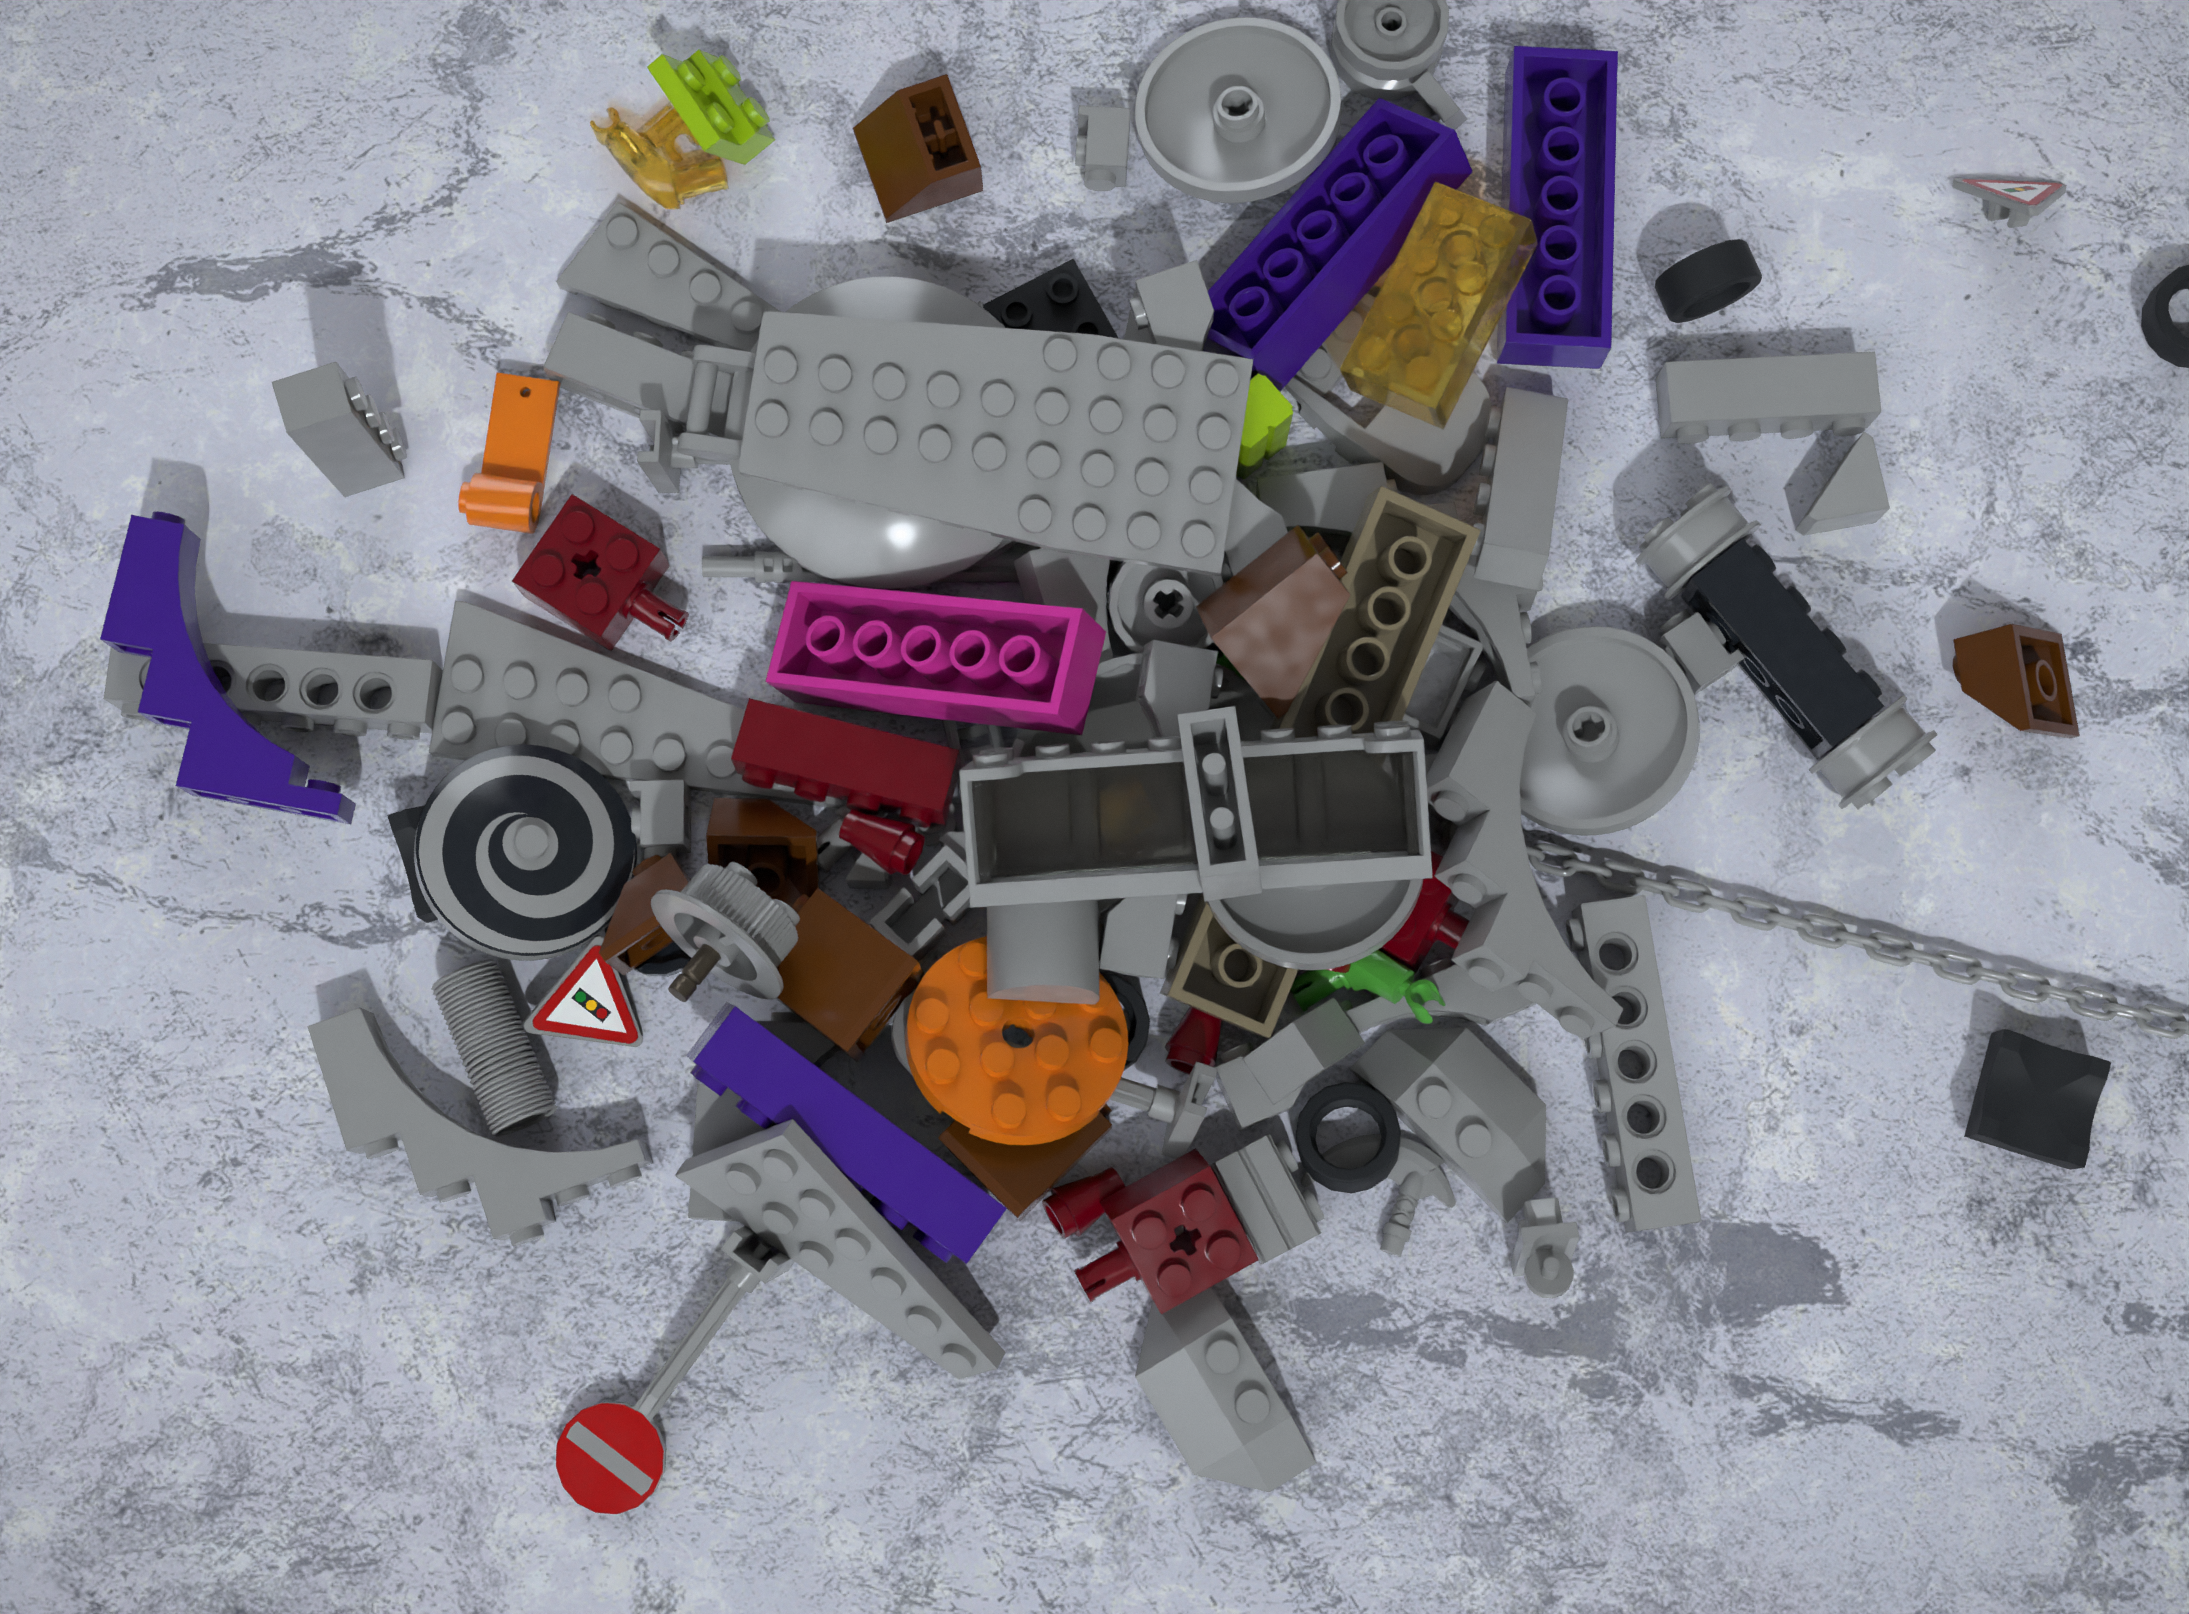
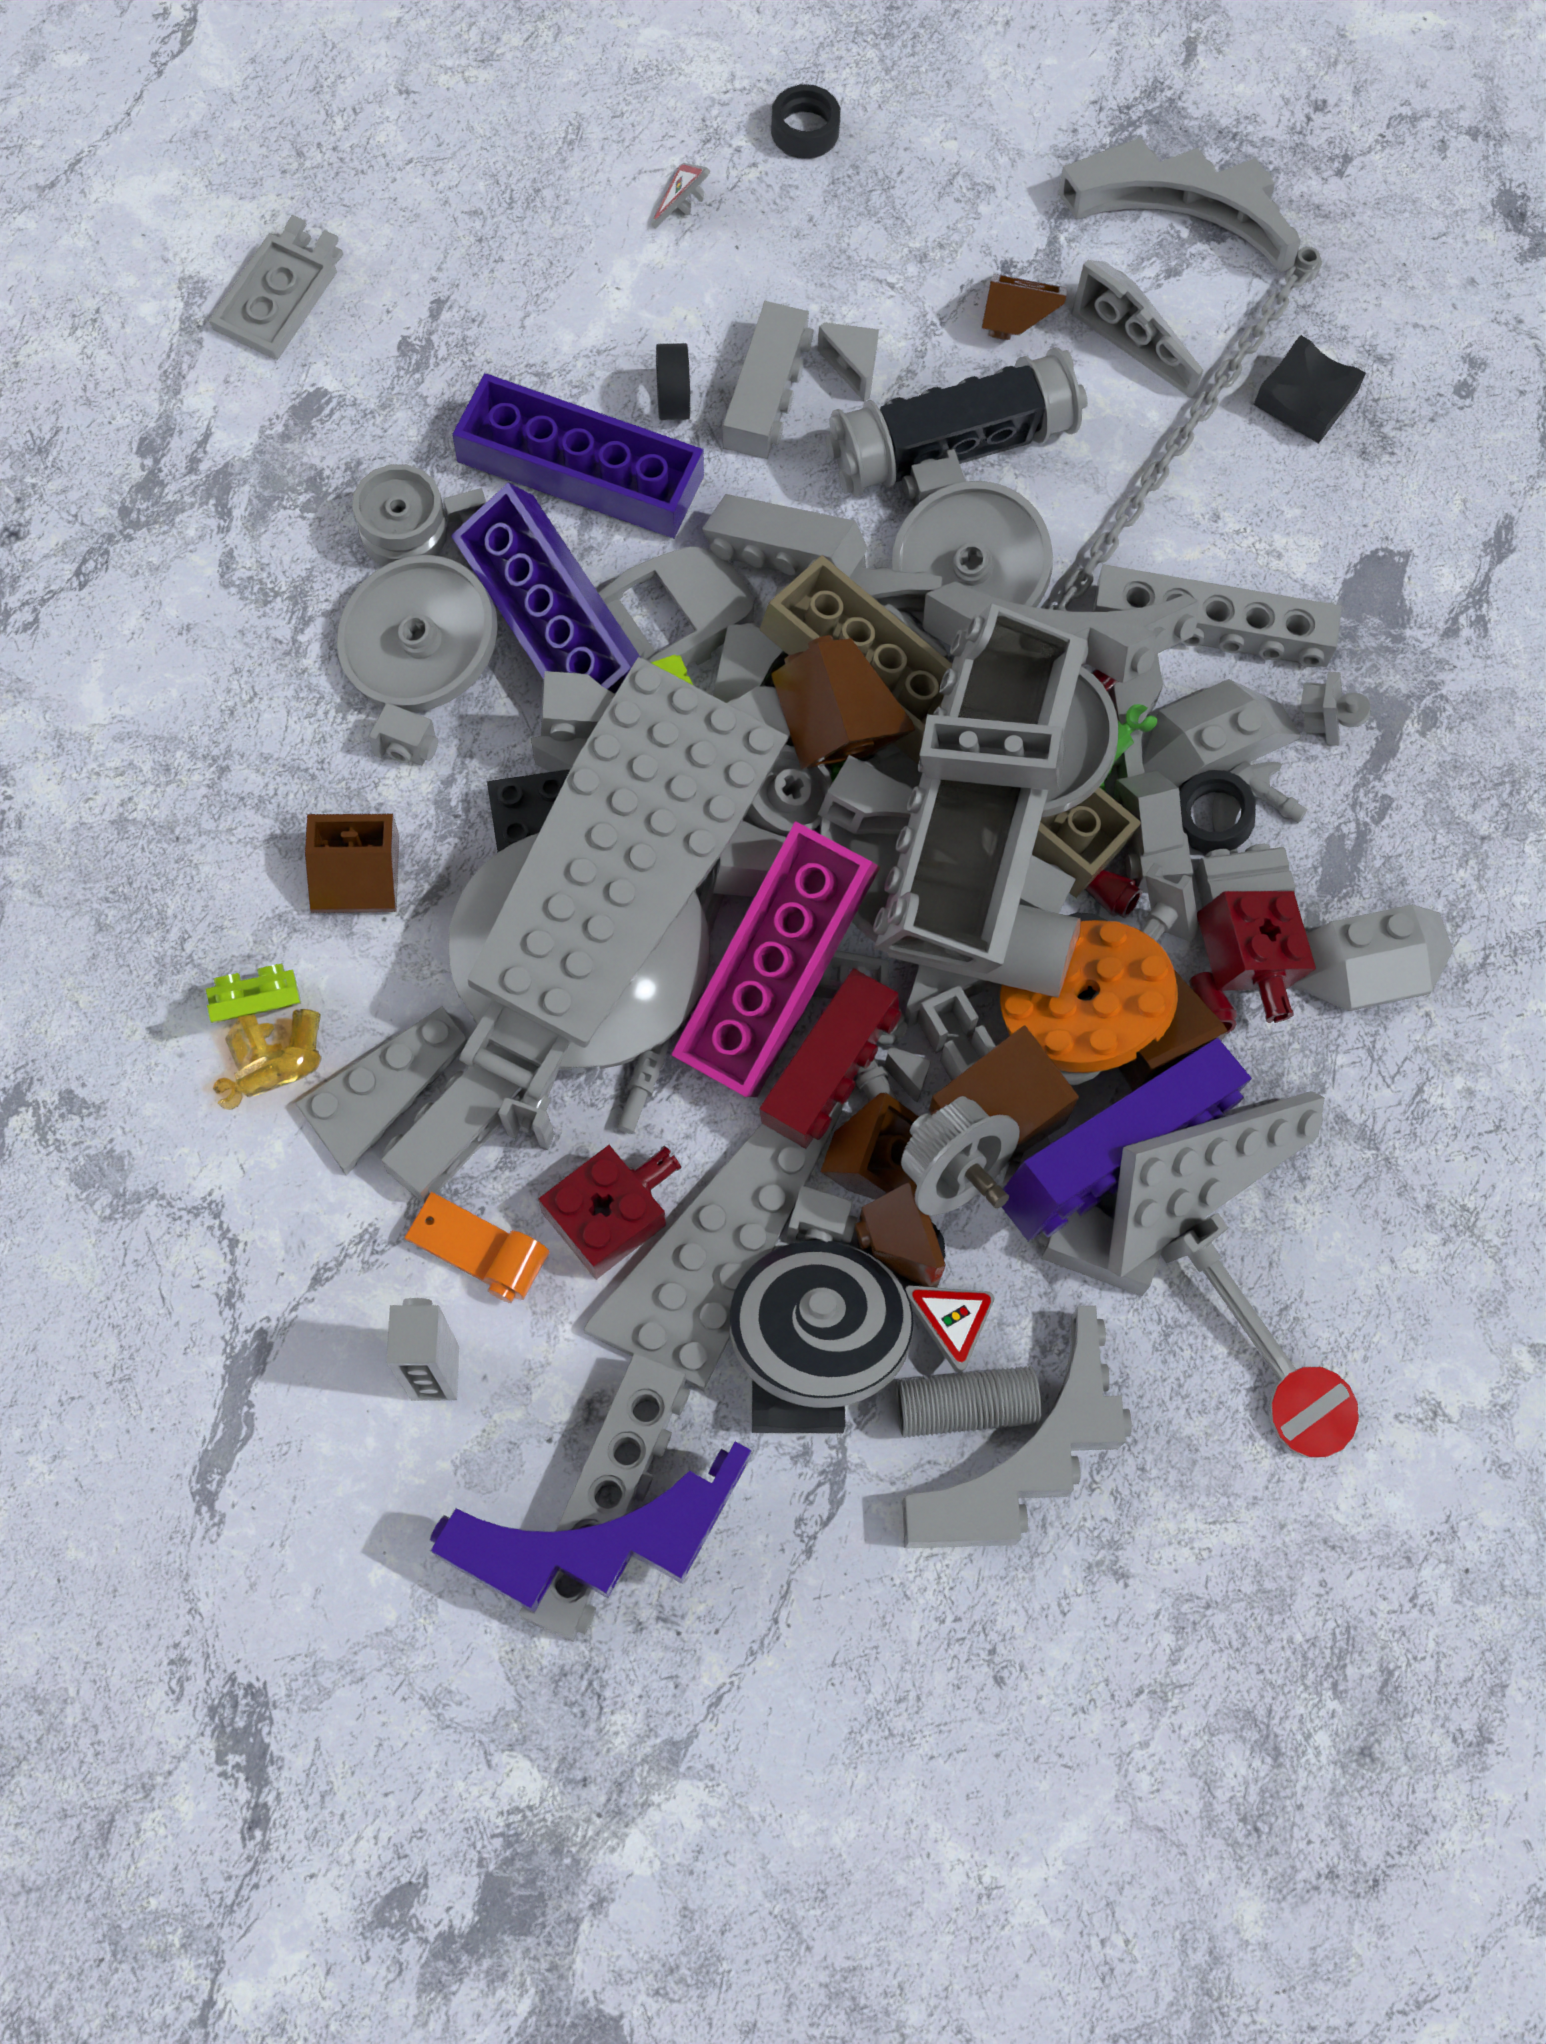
camera: 75 degrees left, 10 degrees down
(884, 841) = (904, 1046): dark red cone -> none
(1439, 305) = (633, 540): clear yellow brick -> none
(2063, 807) = (1126, 317): none -> light grey wedge

